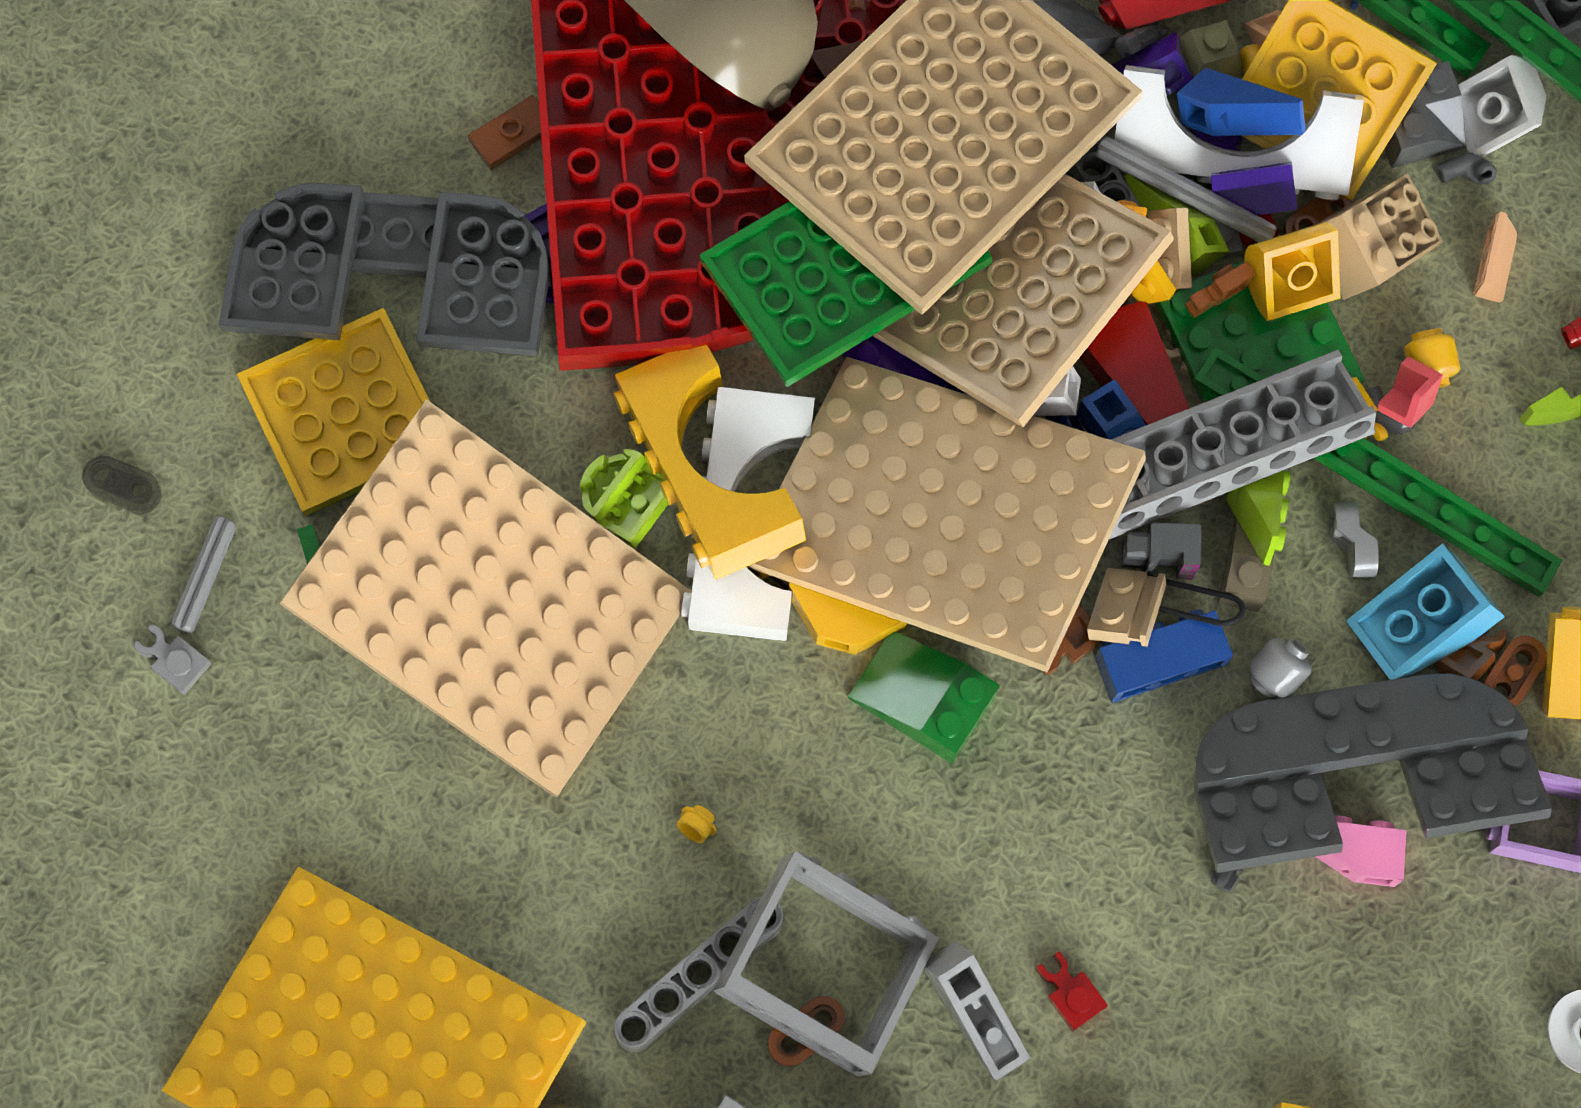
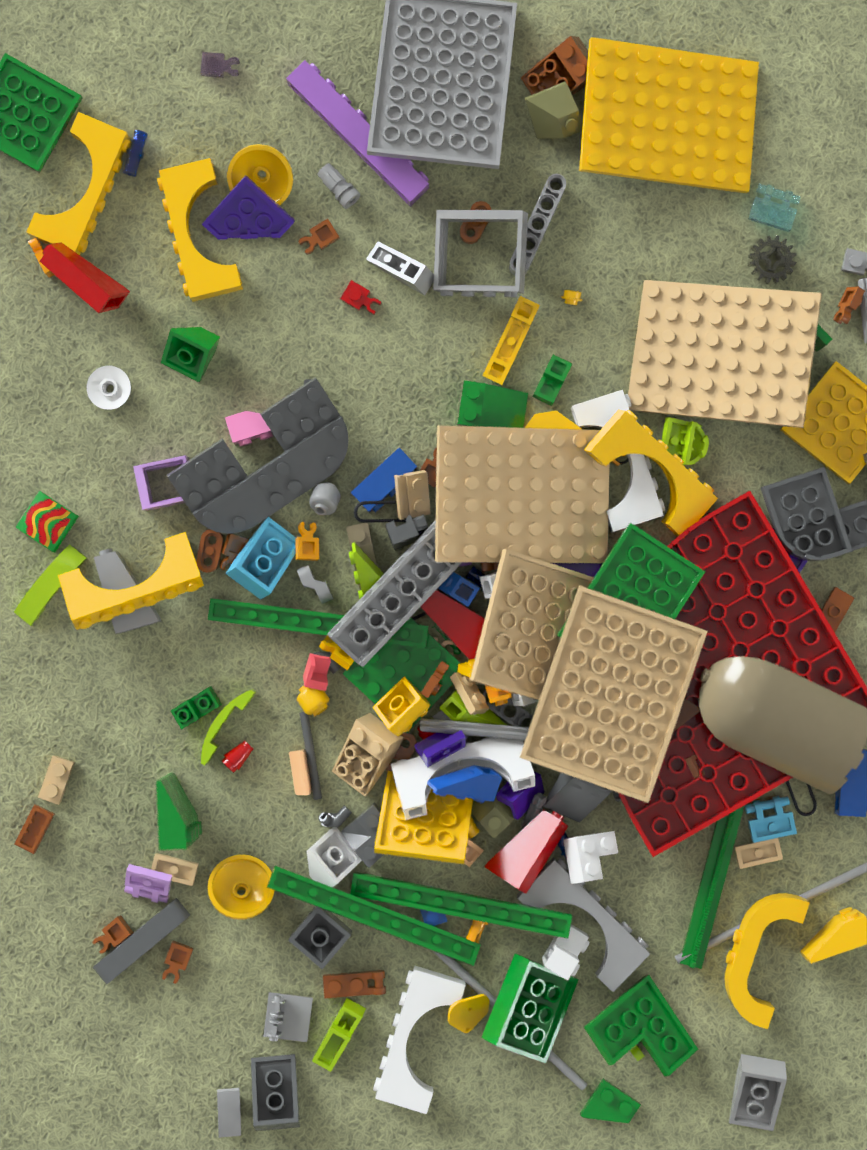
camera: 160 degrees right, 15 degrees up
(228, 597) = (850, 301): none -> dark orange plate
(278, 809) = (772, 213): none -> clear light blue plate
(312, 742) = (781, 260): none -> clear smoke gear
(796, 699) = (552, 380): none -> green slope
(840, 793) = (511, 340): none -> yellow slope
(1340, 607) = (306, 546): none -> light orange plate
(1416, 1030) = (190, 351): none -> green slope
(1469, 275) = (310, 754): none -> dark grey bar

